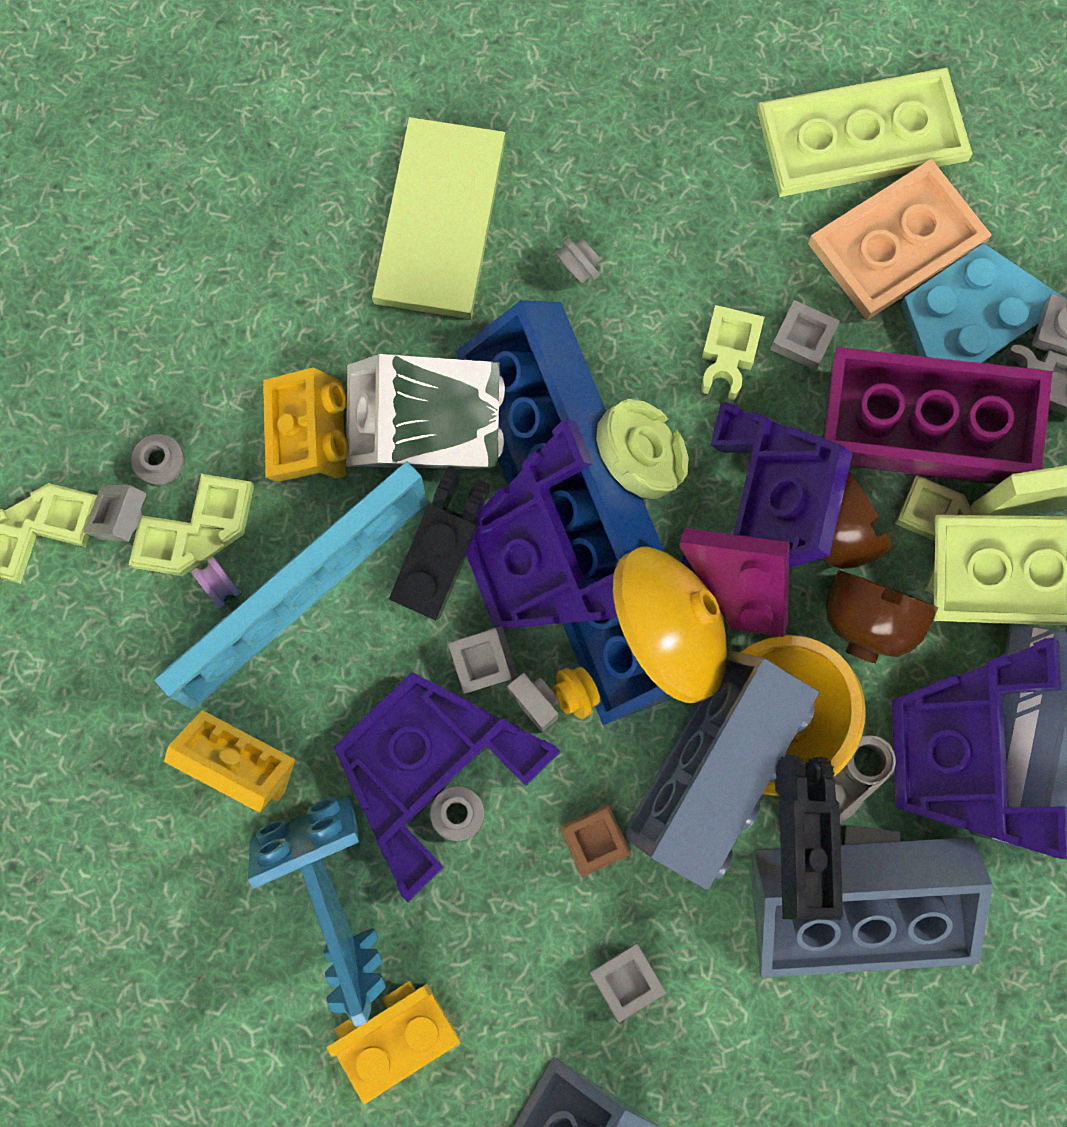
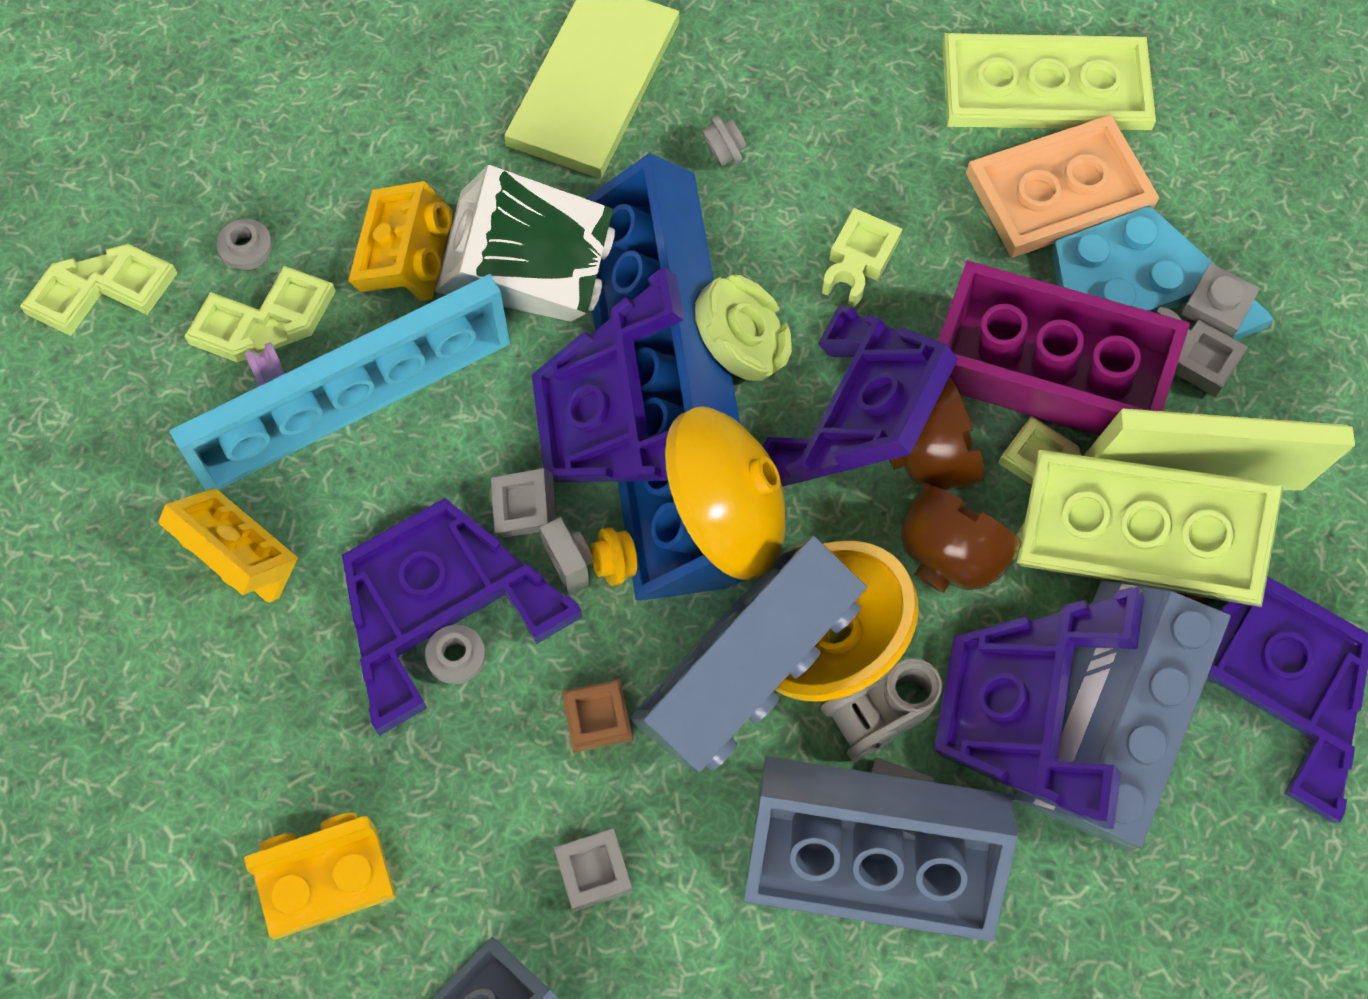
camera: 10 degrees right, 10 degrees down
(115, 513) = (186, 283): light grey plate -> none
(302, 844) = (290, 768): dark azure piece -> none
(439, 548) = (508, 380): black hinge -> none
(744, 576) = (817, 465): magenta wing -> none
(805, 335) = (941, 256): light grey plate -> none
(809, 839) = (820, 740): black hinge -> none

